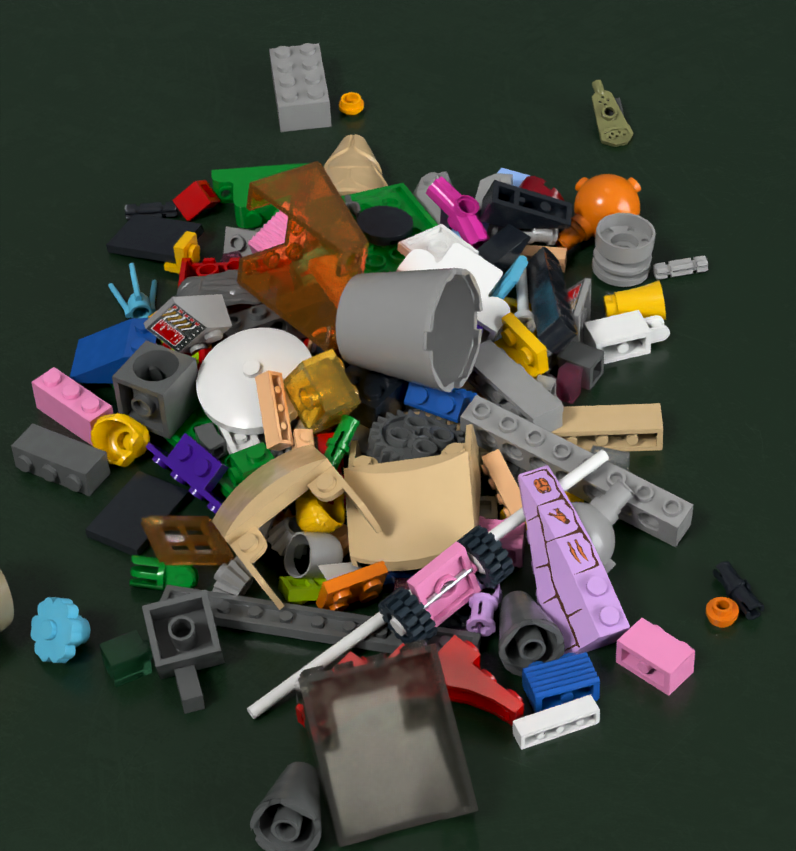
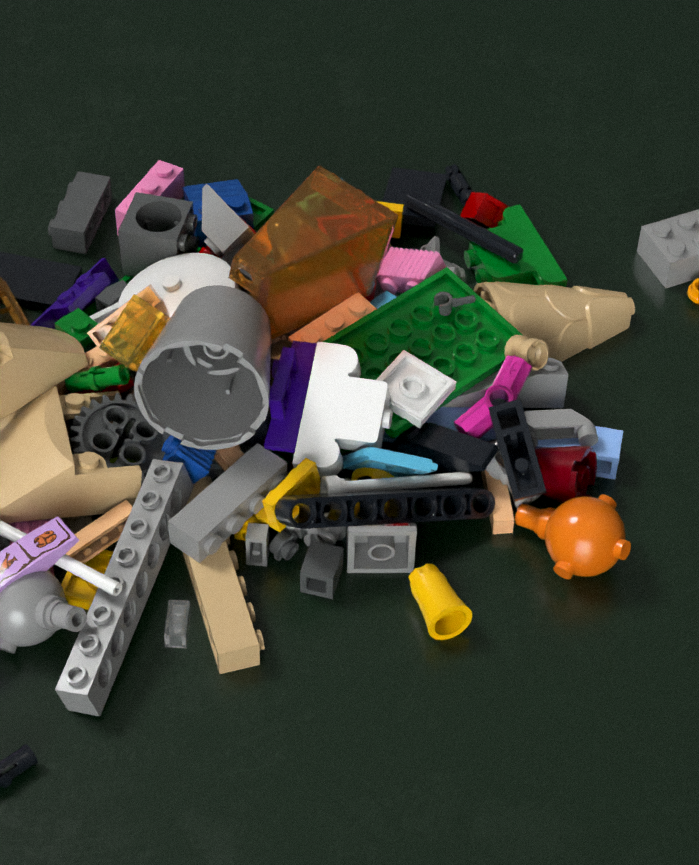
camera: 70 degrees right, 5 degrees up
(120, 437) = (106, 239): yellow hair -> none
(210, 212) = (464, 227): none -> black axle
(385, 225) = (434, 335): black tile -> none
(419, 181) = (532, 350): none -> tan wheel
(569, 382) = (287, 563): clear pink piece -> none
(623, 249) = (518, 567): light grey wheel -> none
(625, 335) = (381, 598): white brick -> none
(680, 267) = (531, 638): light grey axle -> none

